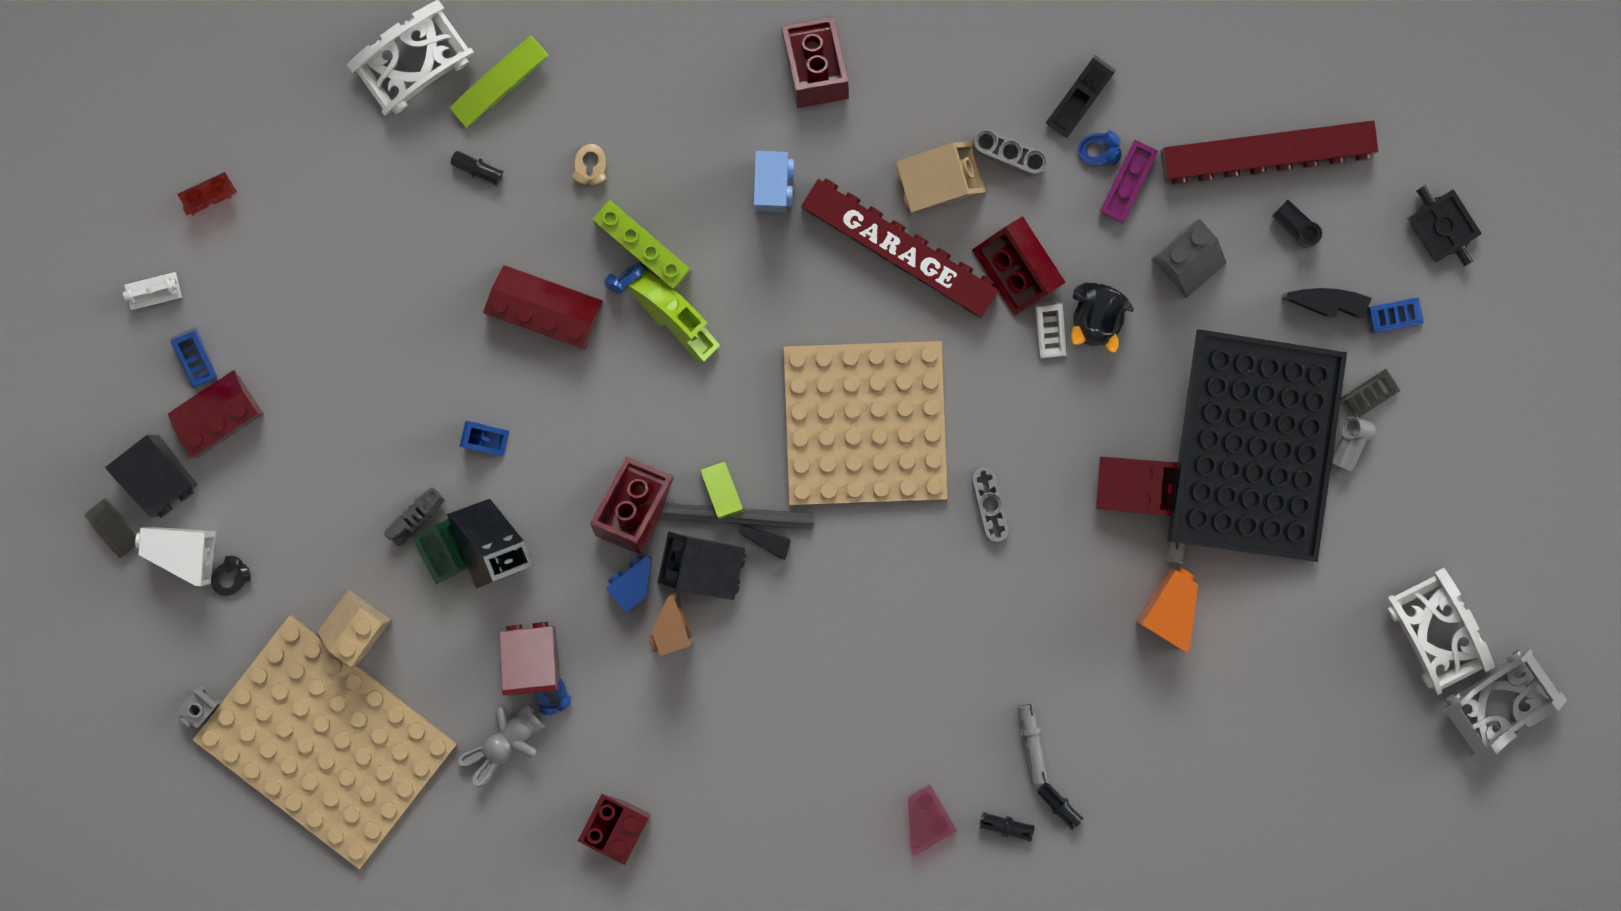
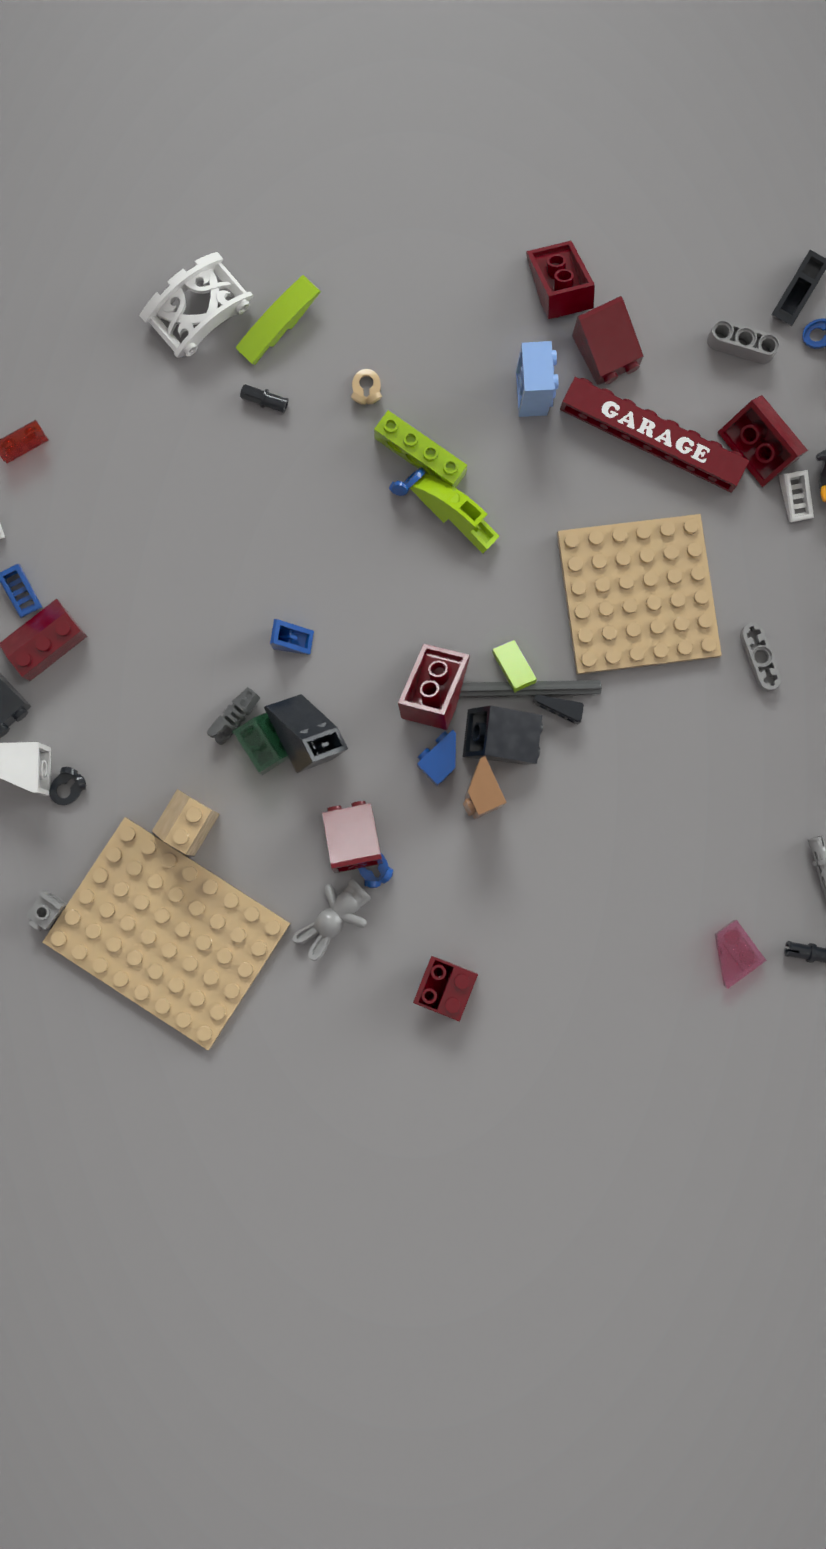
camera: 10 degrees left, 5 degrees down
(543, 307) = (334, 517): dark red slope -> none
(859, 143) = (608, 341): none -> dark red slope
(940, 176) = (682, 367): tan slope -> none

